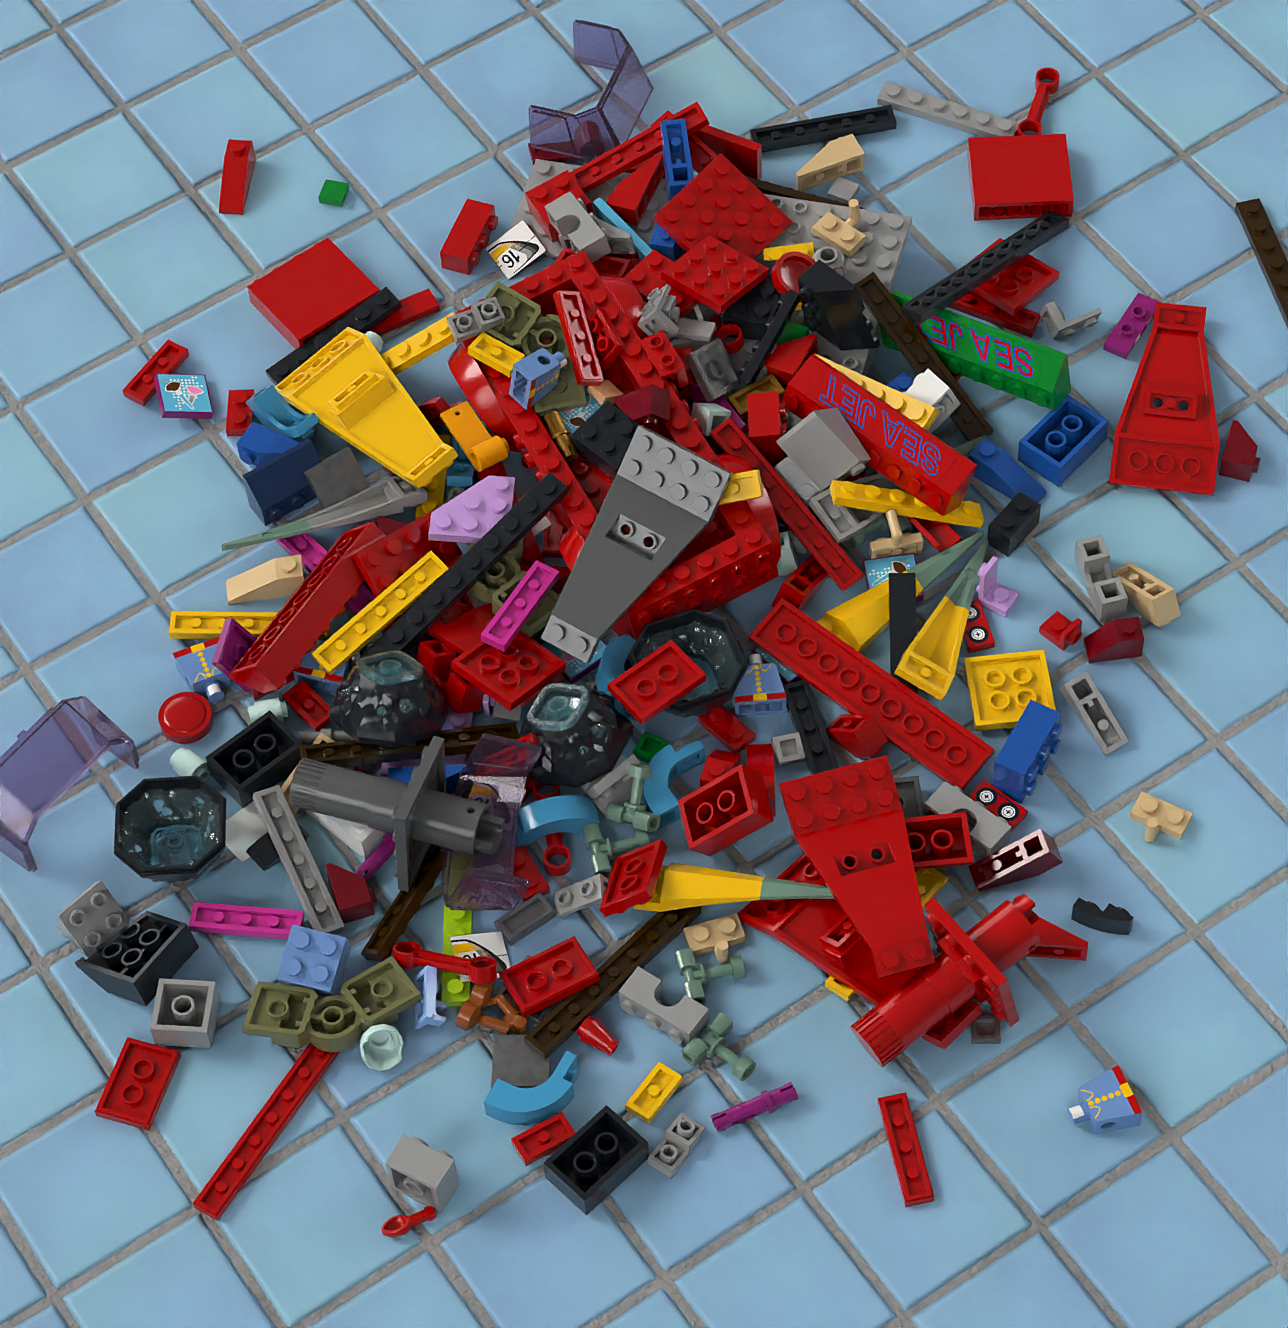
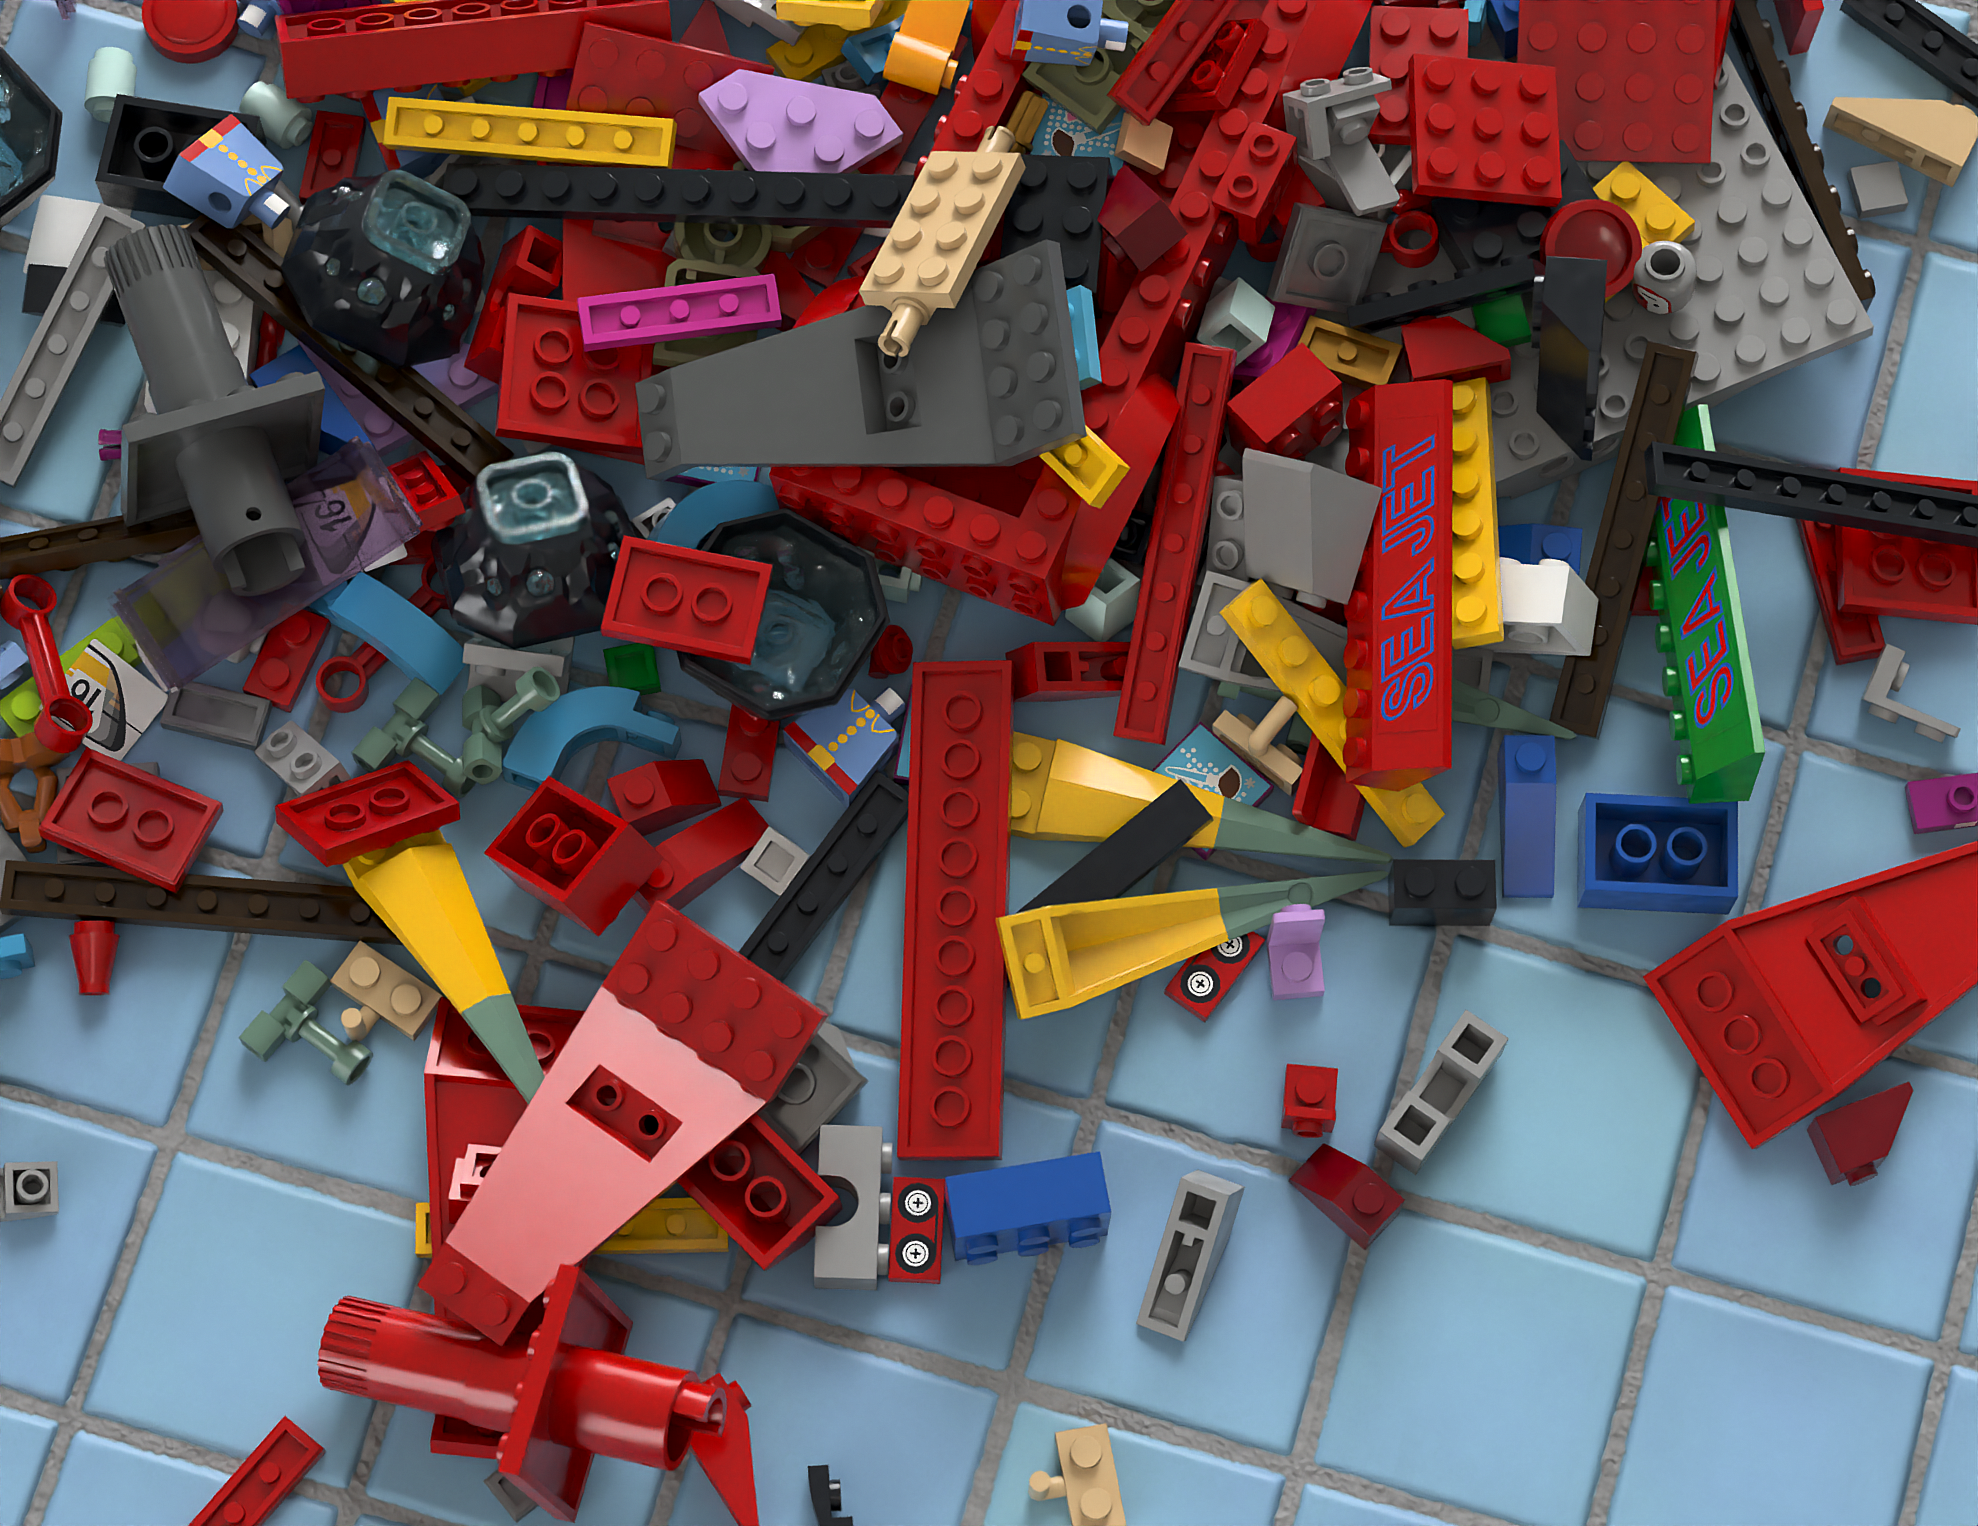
camera: 45 degrees right, 15 degrees up
(296, 730) = (229, 177): none -> medium blue torso
(350, 894) = (66, 452): dark red slope -> none
(590, 473) = (941, 235): none -> tan plate
(653, 1093) = (61, 1100): yellow plate -> none
(679, 1021) = (201, 967): light grey arch -> none
(713, 1044) = (199, 1121): sand green bar -> none
(747, 1110) = (159, 1264): magenta pin -> none
(841, 233) = (1748, 246): tan plate -> none
(857, 735) = (875, 940): red slope -> none
(1004, 685) = (1137, 1101): yellow plate -> none
(1017, 861) = (834, 1329): dark red slope -> none
(1148, 594) = (1475, 1177): tan slope -> none

